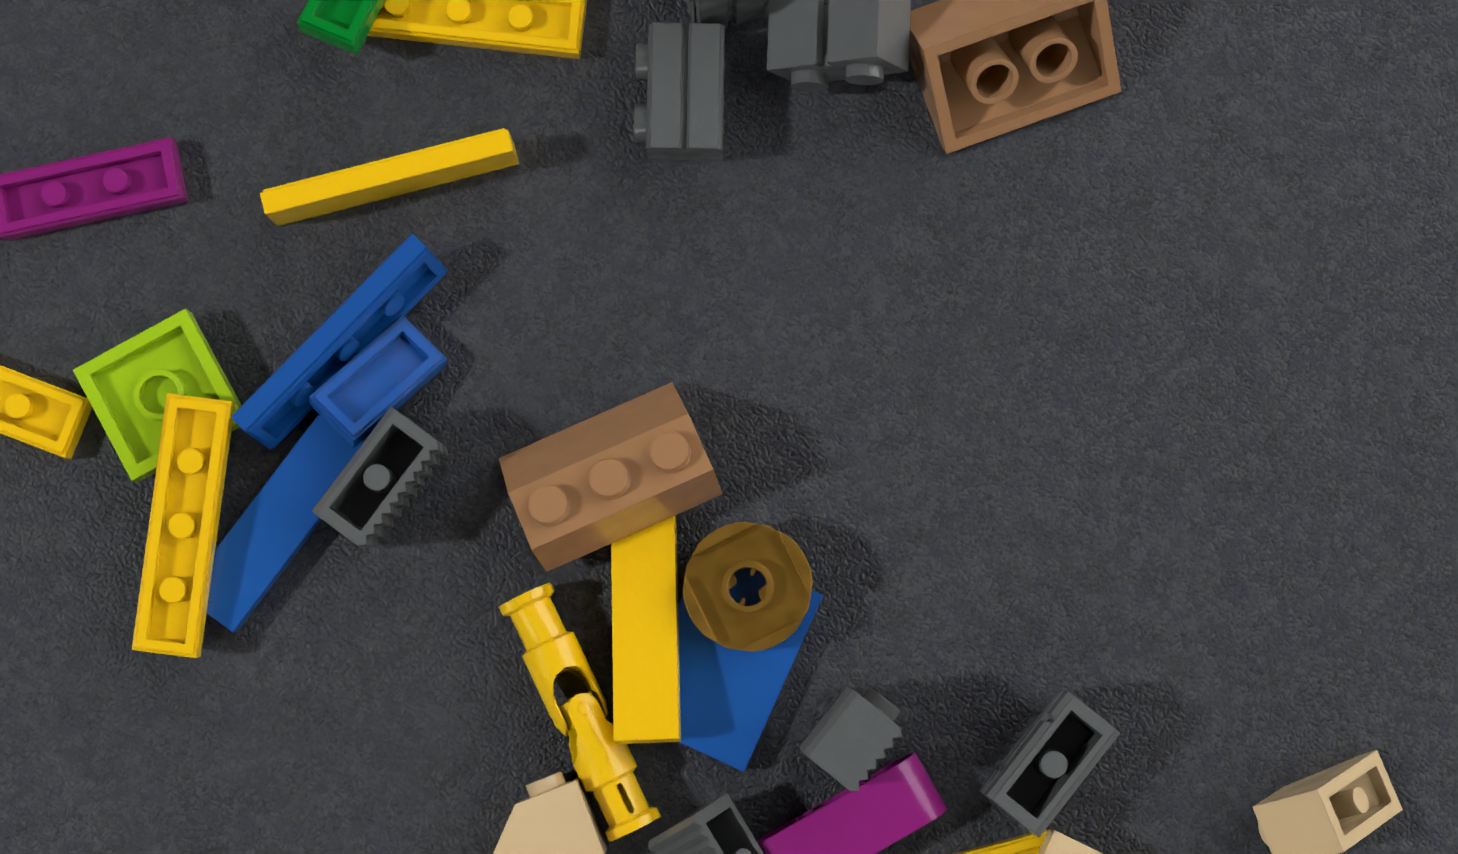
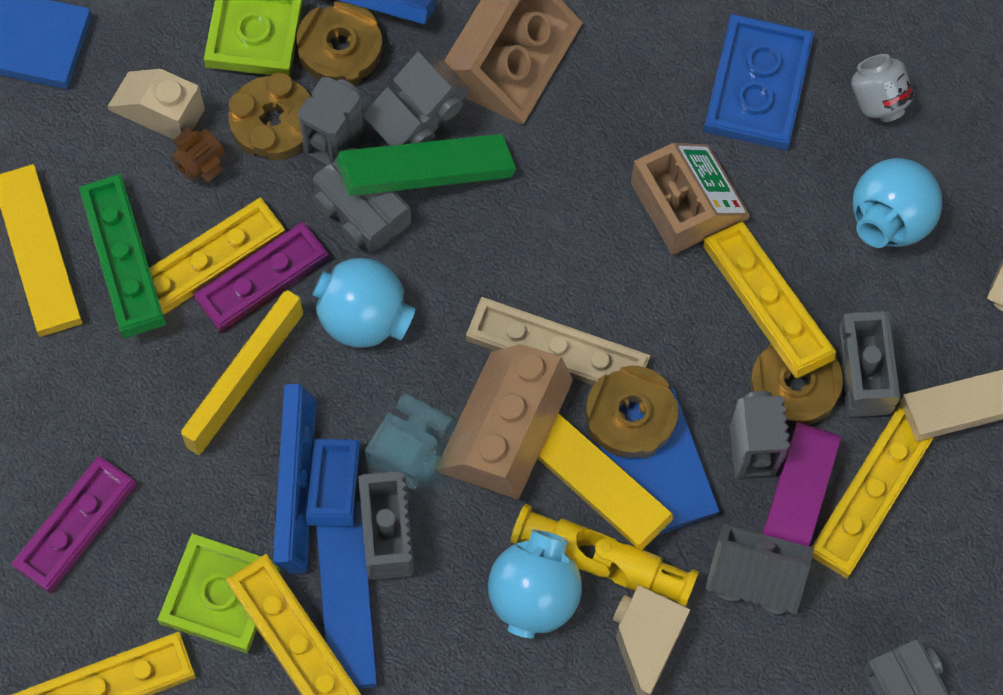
camera: 45 degrees left, 15 degrees down
(474, 681) = (535, 585): none -> medium azure brick
(480, 409) = (405, 444): none -> clear light blue brick
(509, 85) = (261, 277): none -> magenta tile
(578, 212) = (362, 303): none -> medium azure brick
(744, 433) = (585, 355): none -> tan tile
(784, 113) = (425, 164): none -> green tile
(963, 743) = (803, 406): none -> pearl gold plate
(1015, 593) = (769, 299): none -> yellow tile
(1043, 397) = (686, 194): none -> medium nougat slope
(1250, 332) = (758, 82): none -> blue tile
(1255, 615) = (896, 203): none -> medium azure brick
(1376, 466) = (882, 87): none -> light grey head

